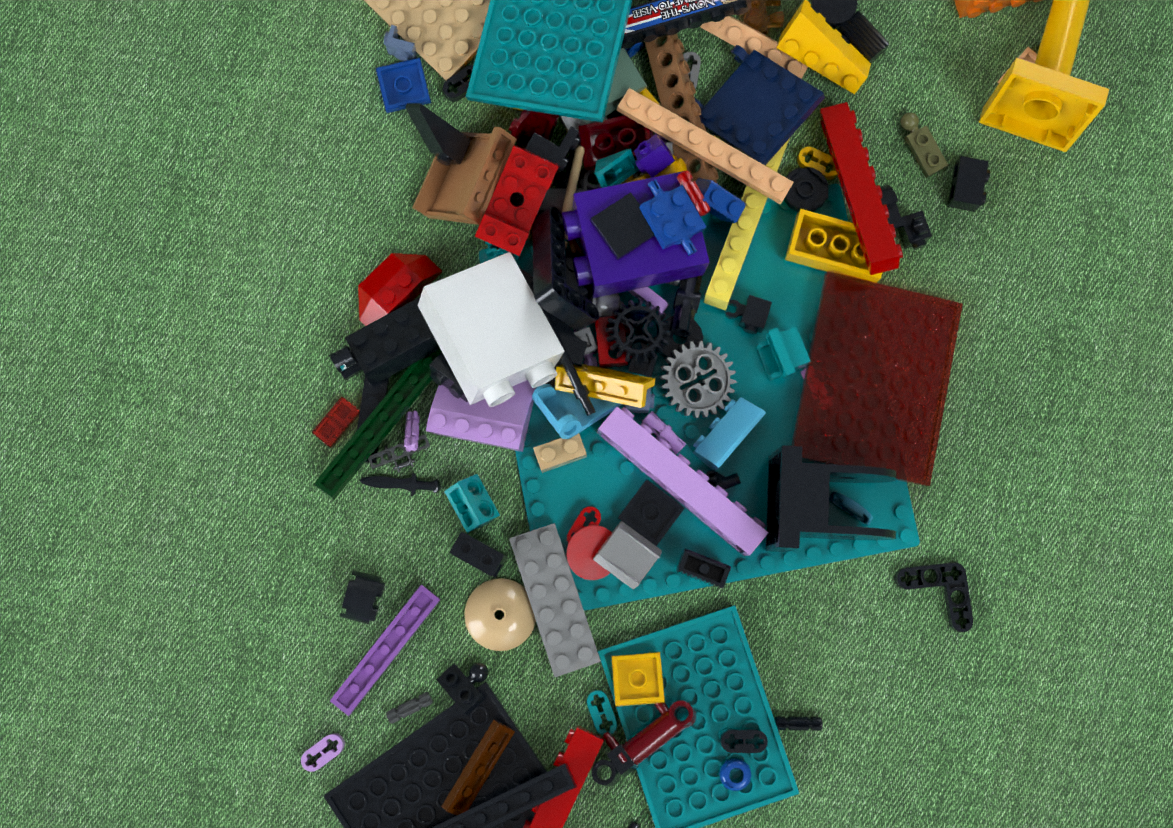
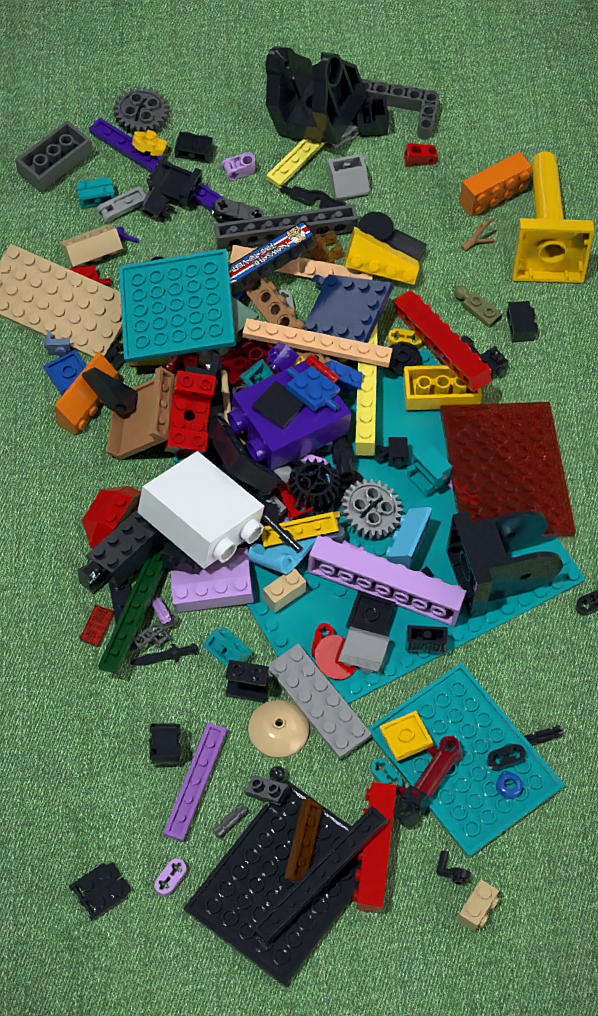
camera: 20 degrees left, 20 degrees down
(243, 740) = (101, 889): none -> black plate
(397, 134) = (80, 400): none -> orange slope
(949, 53) = (474, 239): none -> medium nougat plant

